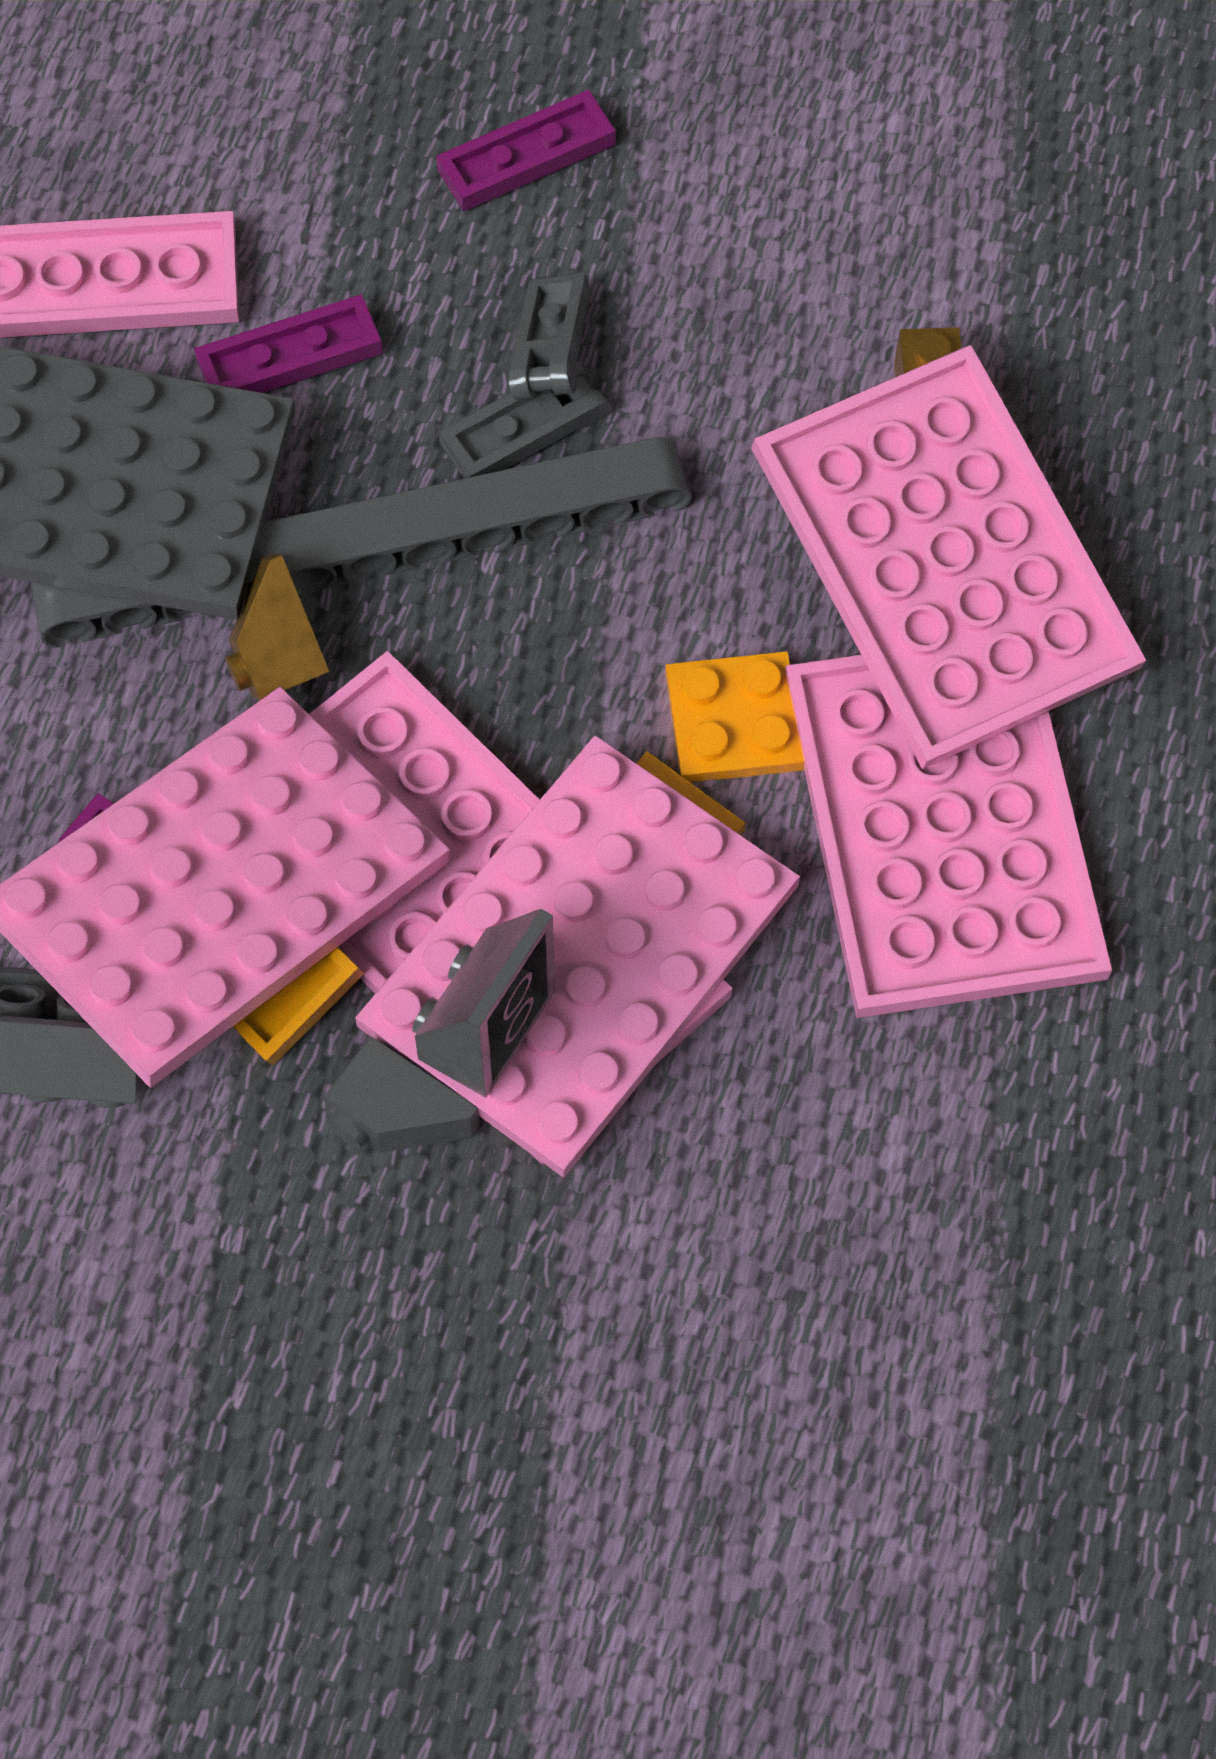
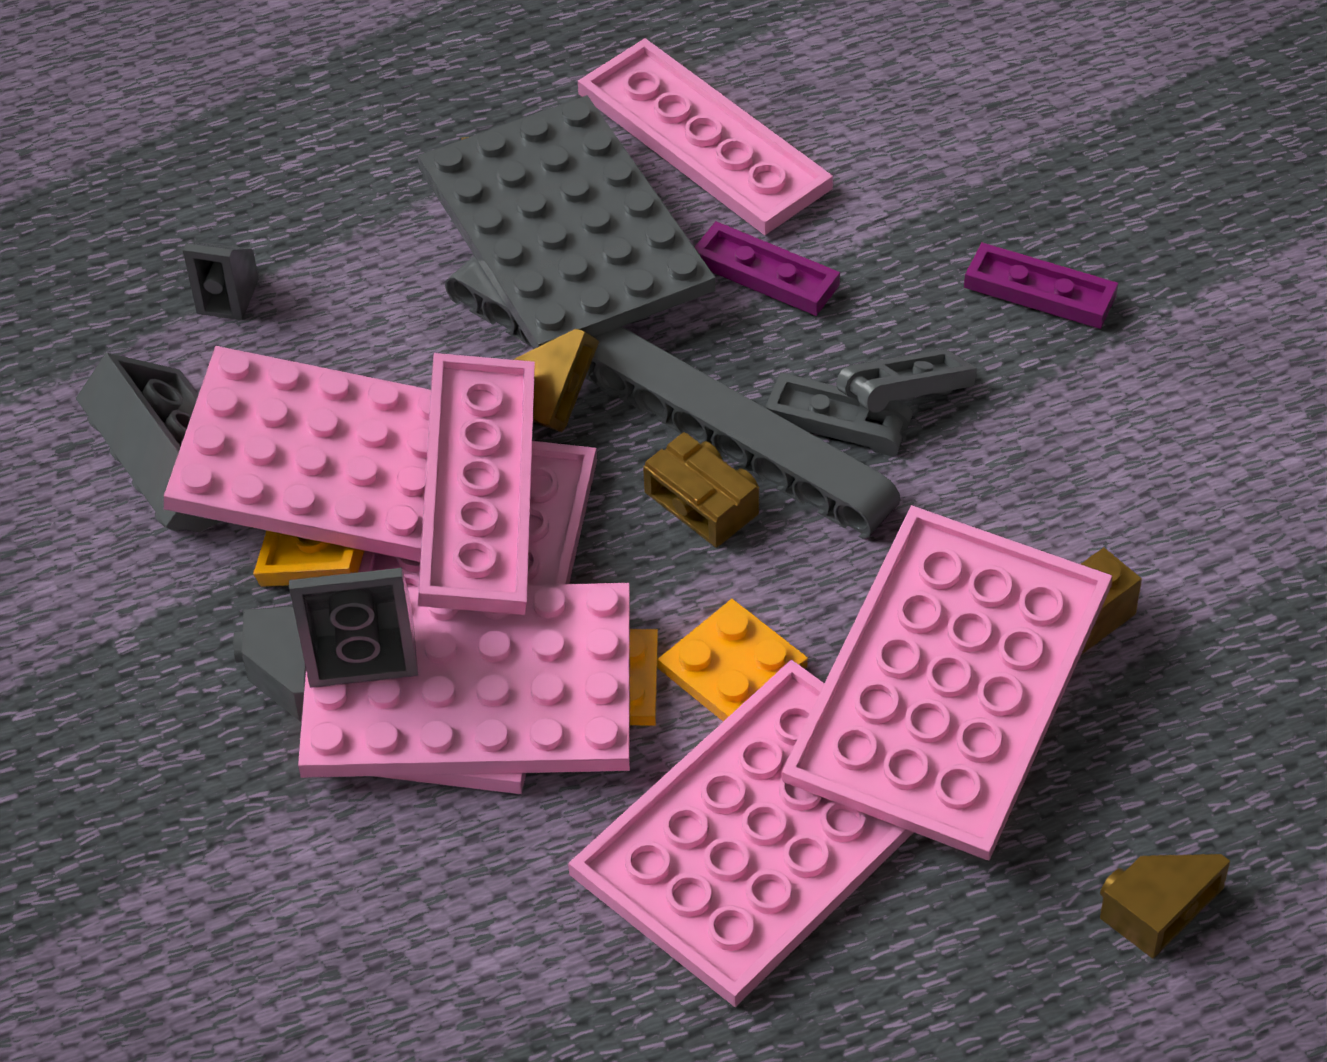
camera: 55 degrees right, 15 degrees down
(379, 778) = (477, 485): none -> bright pink plate
(518, 596) = (701, 488): none -> pearl gold brick

